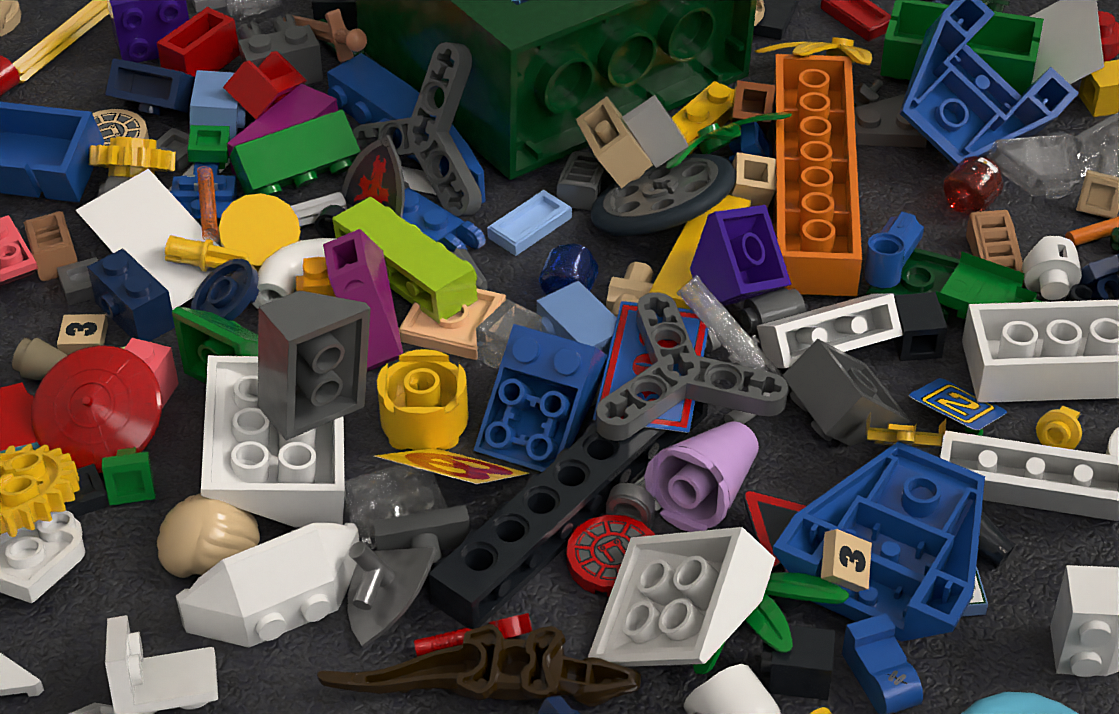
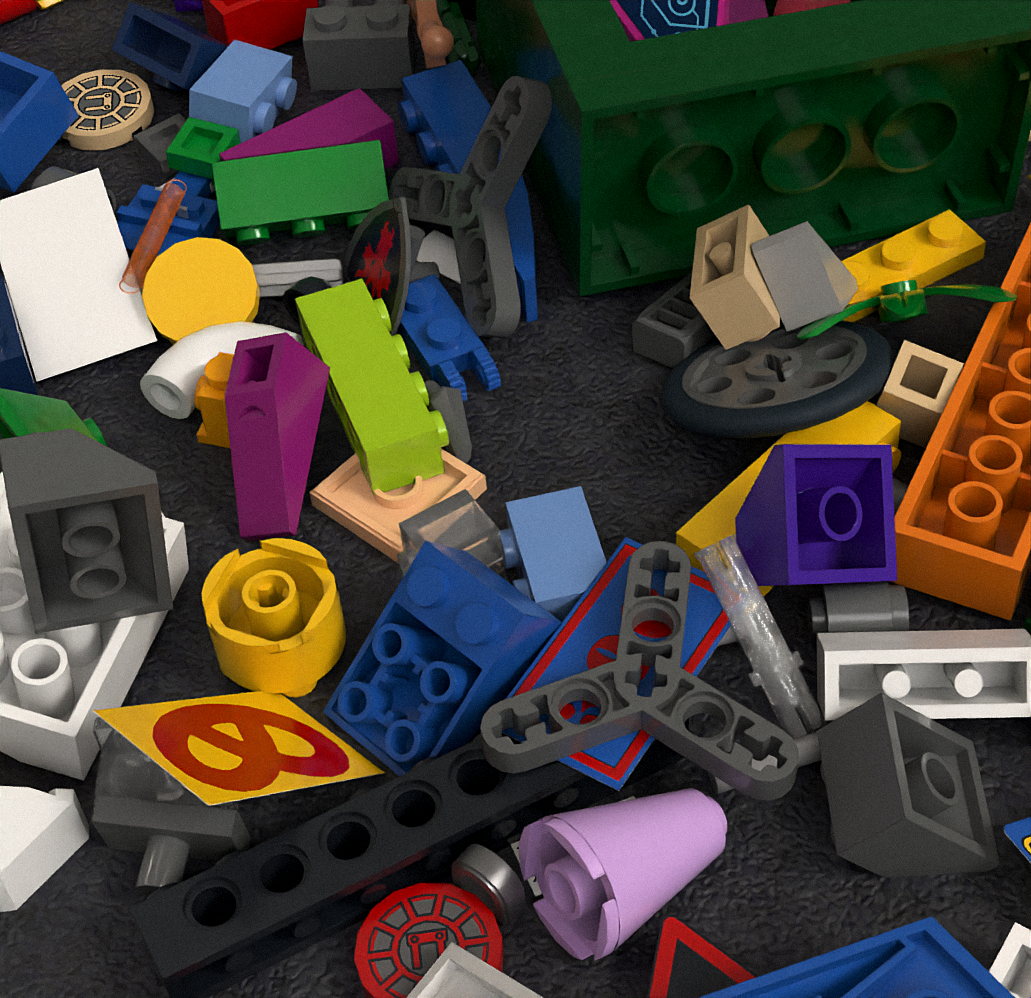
camera: 25 degrees right, 5 degrees up
(131, 156) = (93, 145): yellow gear -> none
(200, 253) = (112, 311): yellow axle -> none
(228, 294) = (109, 374): dark blue wheel -> none
(263, 86) = (300, 85): red panel -> none
(384, 587) = (74, 901): flat silver shield -> none
(529, 222) = (578, 368): light blue tile -> none
(567, 265) = (586, 458): clear blue head -> none
(631, 287) = (658, 519): tan axle -> none
(752, 100) = (976, 259): dark orange brick -> none
(752, 142) = (953, 328): blue tile -> none
(904, 434) = (957, 902): yellow piece -> none

